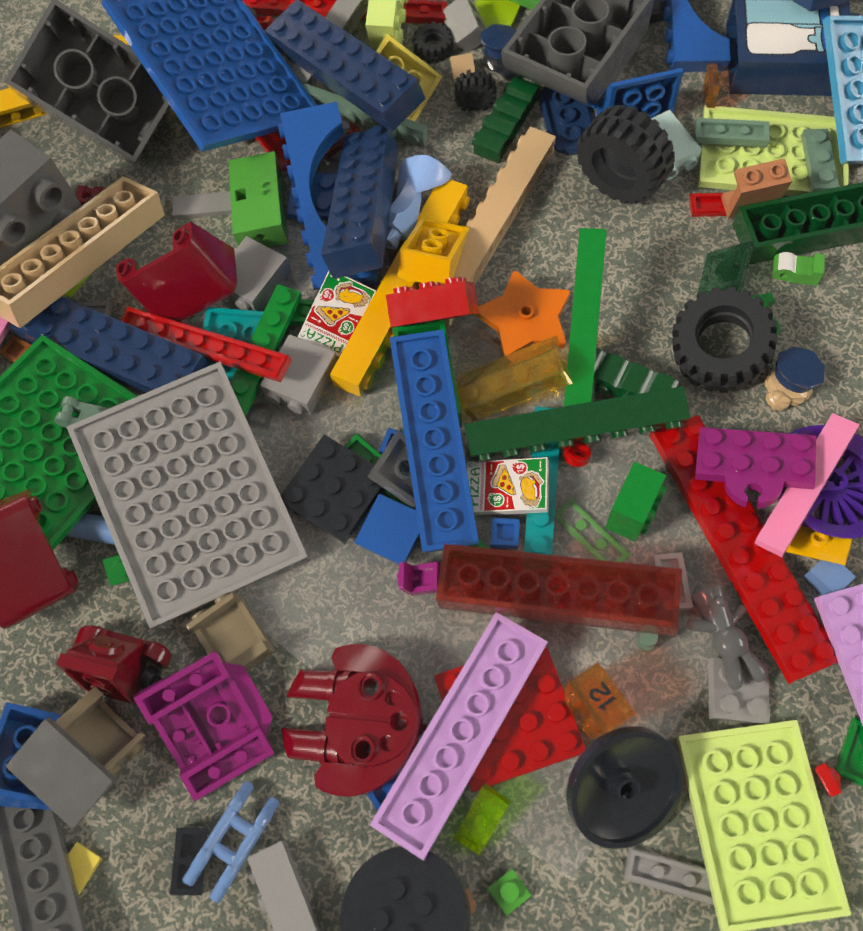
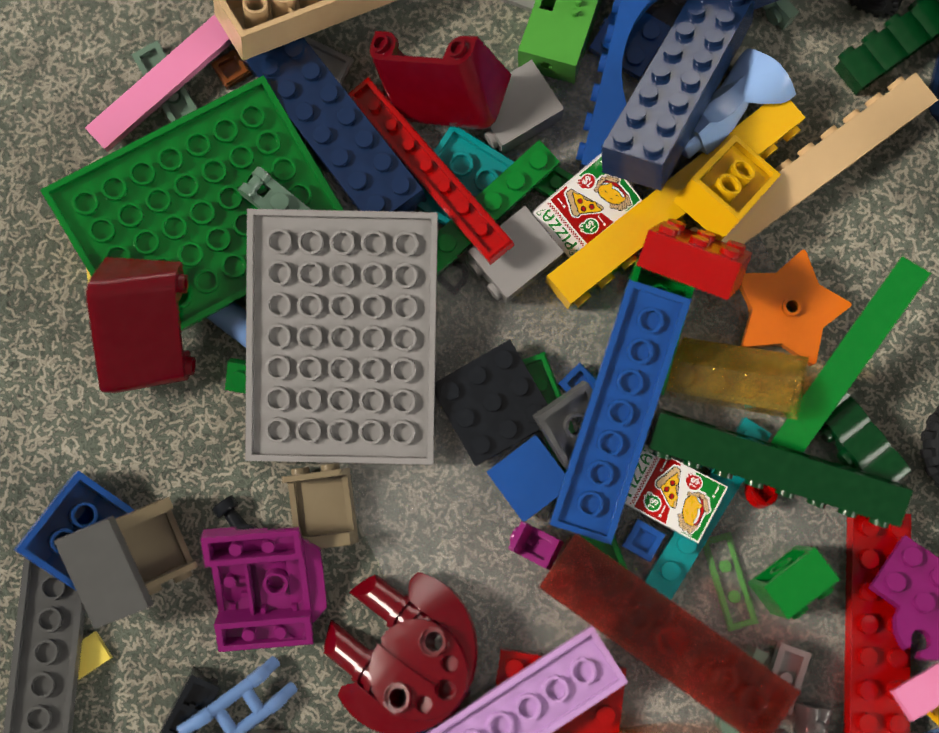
camera: 20 degrees right, 15 degrees up
(111, 661) = (196, 475): dark red piece -> none

